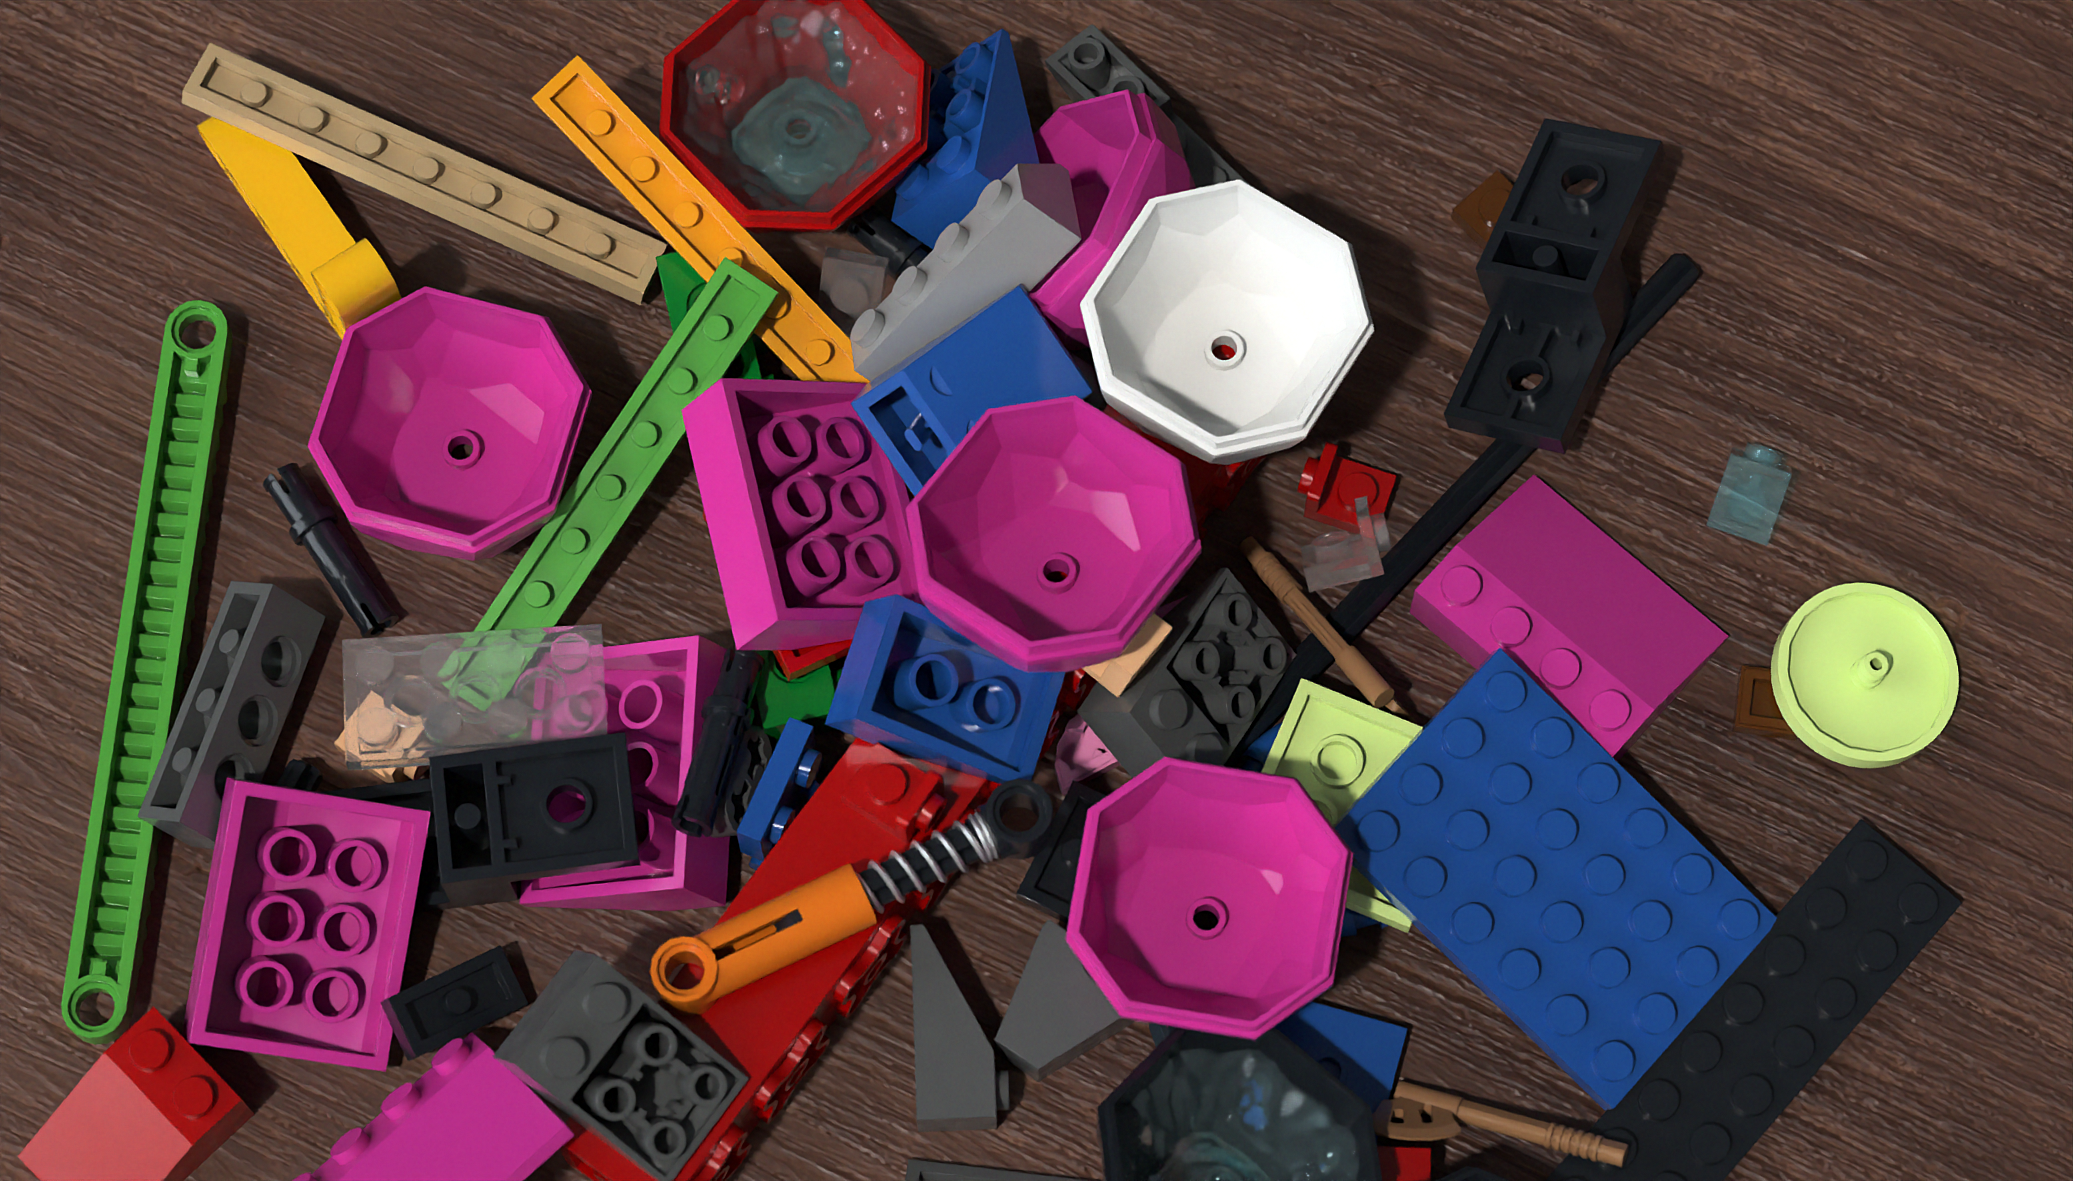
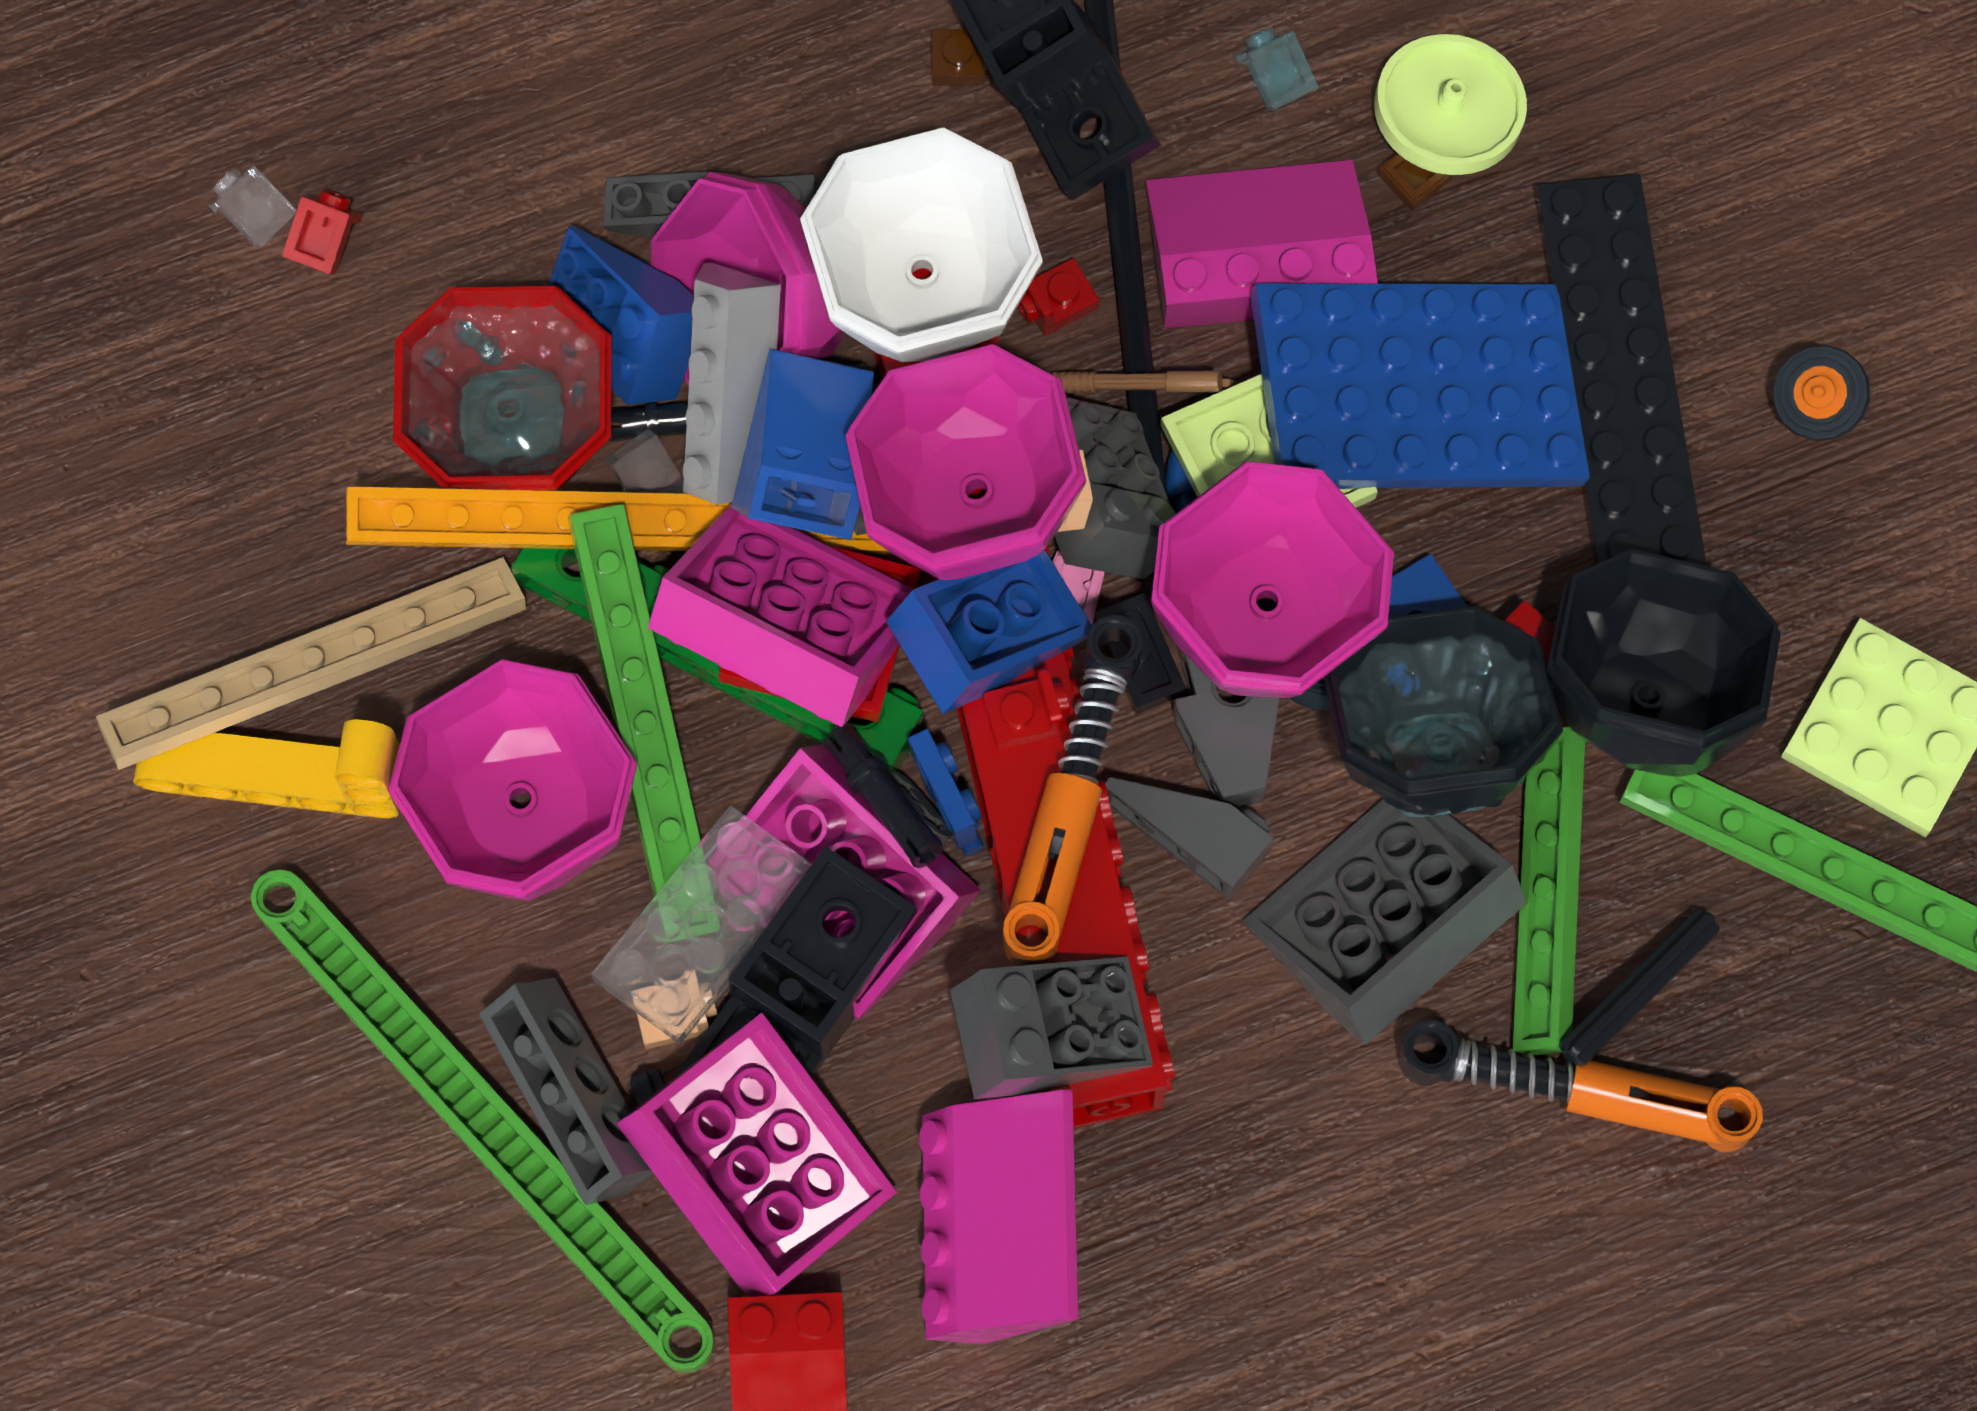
camera: 50 degrees left, 0 degrees up
(317, 530) = (509, 939): black pin -> none
(454, 1003) = (893, 1110): black plate -> none
(1346, 558) = (1103, 328): clear bracket -> none
(1448, 1109) = (1506, 573): medium nougat piece -> none

